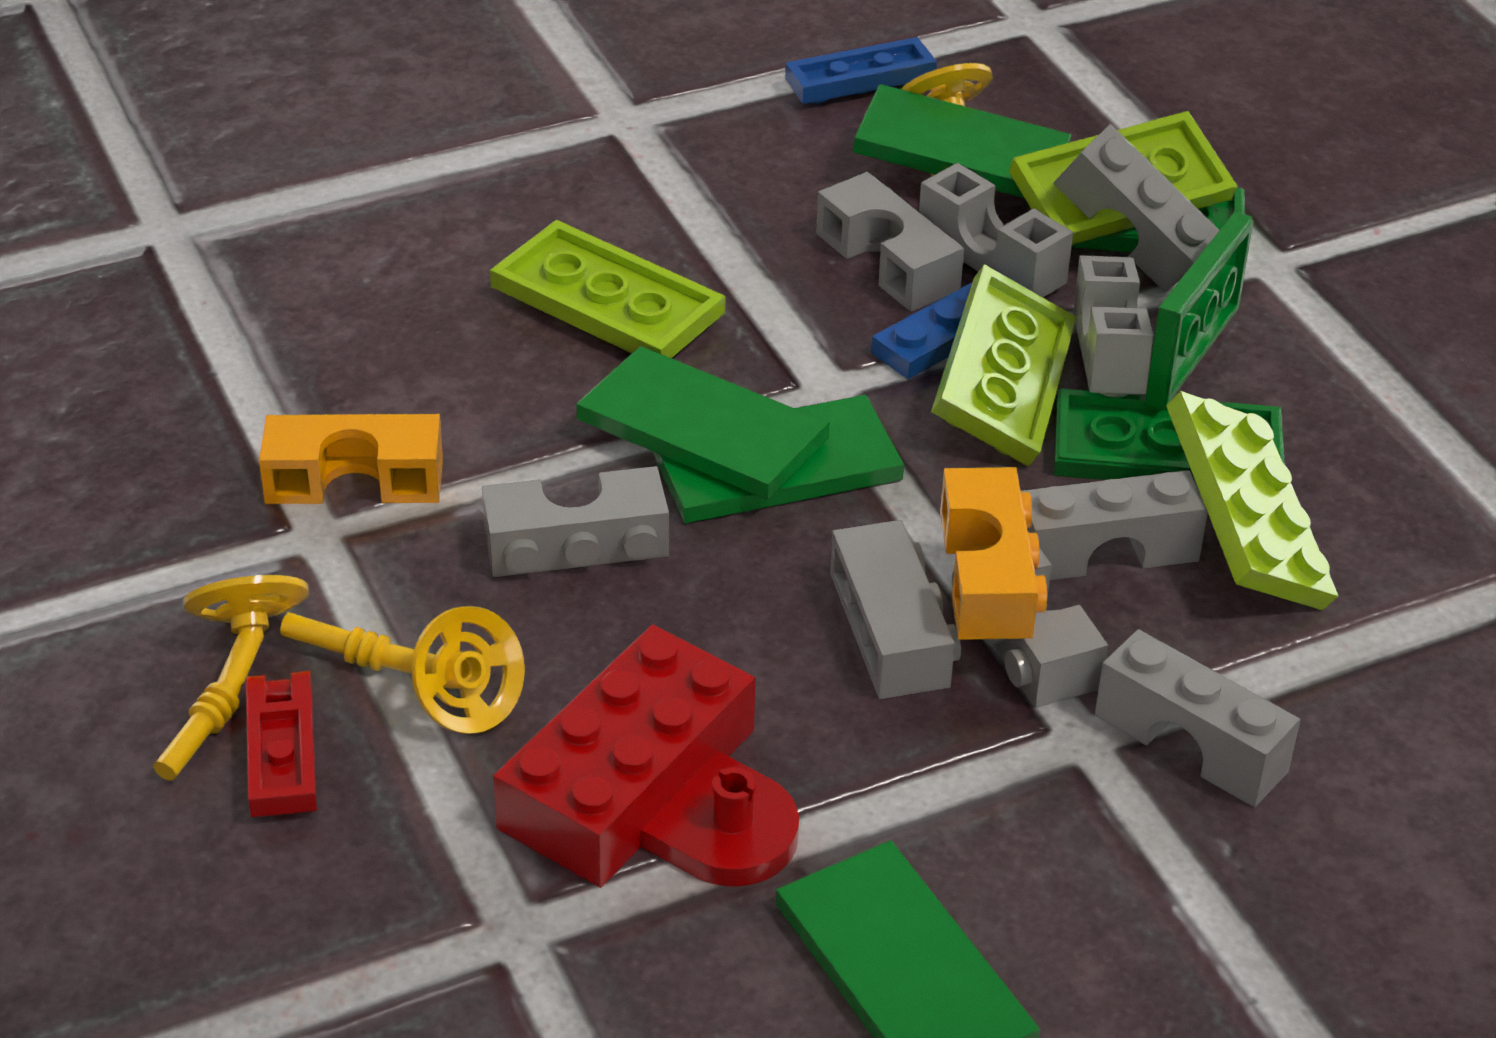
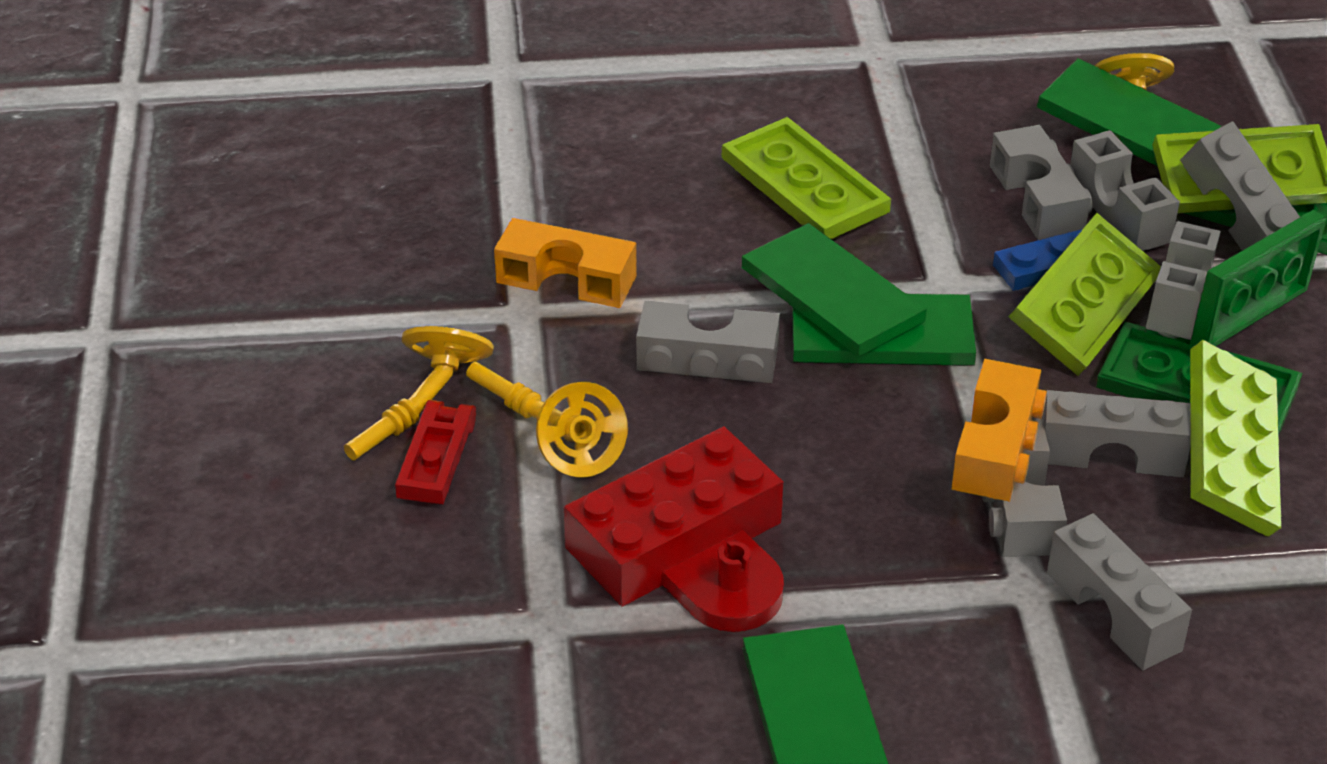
camera: 20 degrees right, 0 degrees up
(858, 70) = (1069, 44): blue plate -> none
(893, 609) = (919, 457): light grey brick -> none

